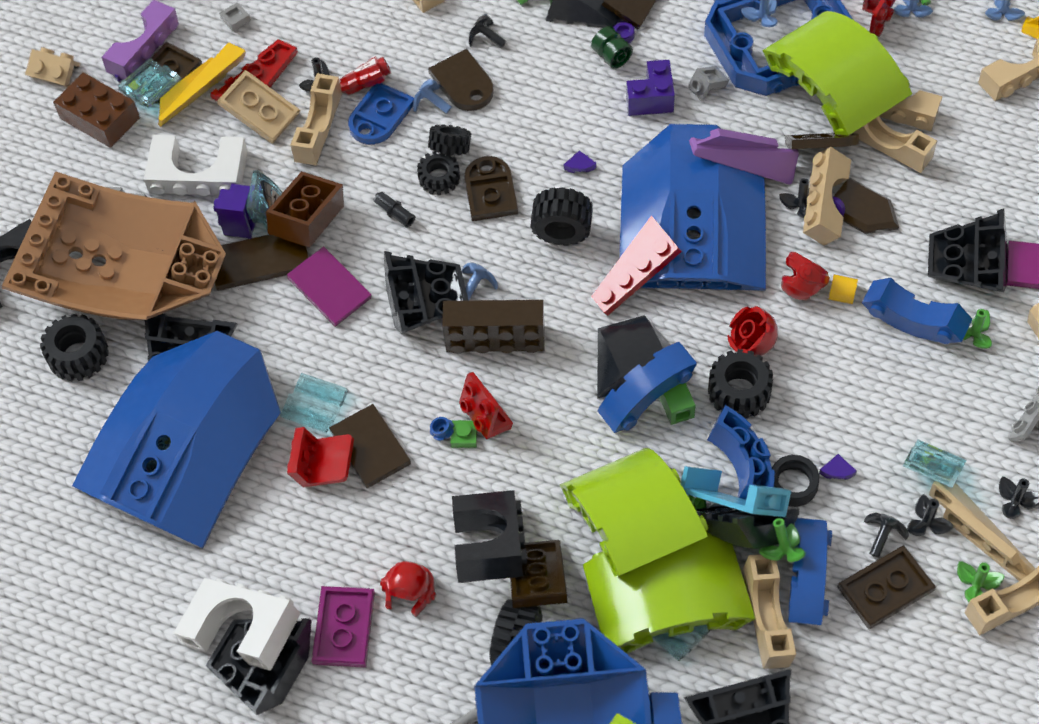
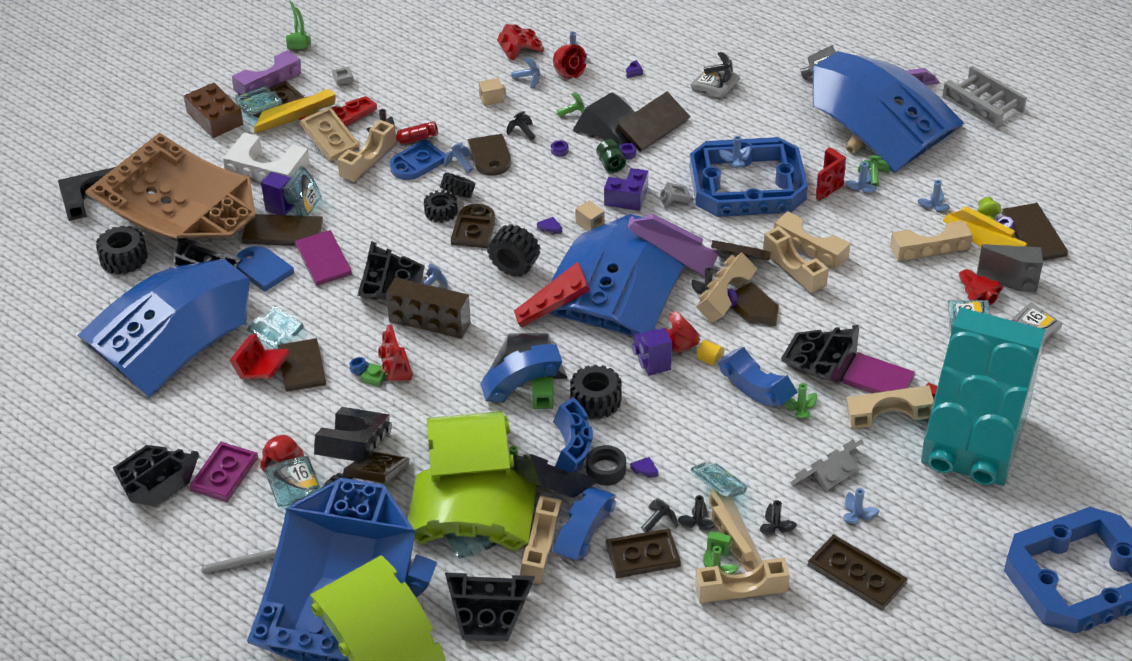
camera: 15 degrees right, 15 degrees down
(50, 67) = (194, 76): tan bracket -> none
(219, 600) = (166, 447): white arch -> none
(260, 319) = (264, 267): none -> blue tile
(305, 209) = (328, 202): reddish brown brick -> none
(394, 209) = (396, 222): black axle -> none
(438, 618) = (292, 480): none -> clear light blue slope
(542, 50) = (559, 148): none -> dark purple tile
(622, 139) = (589, 216): none -> tan brick
(753, 331) = (624, 359): red cylinder -> none
(760, 499) = (556, 451): medium azure panel -> none
(786, 304) = (653, 350): none -> dark purple brick
(788, 539) = (571, 495): bright green plant -> none
(842, 68) = (775, 204): lime panel -> none
(969, 549) = (721, 540): none -> bright green plate

